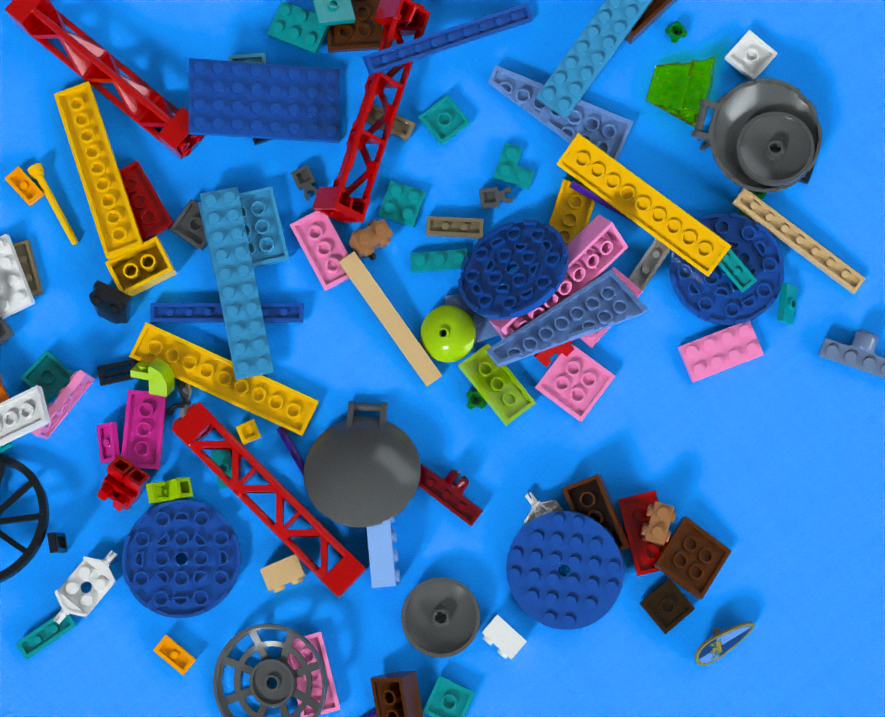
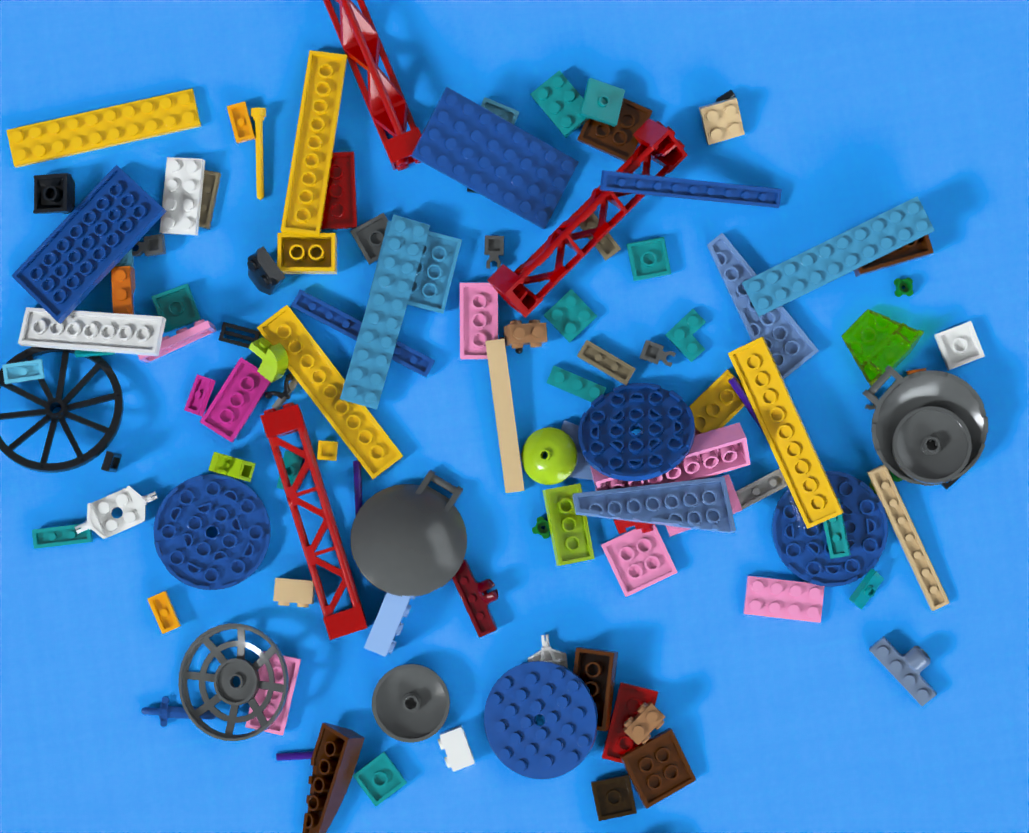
camera: 20 degrees right, 5 degrees up
(123, 484) = (192, 439): red hips -> none

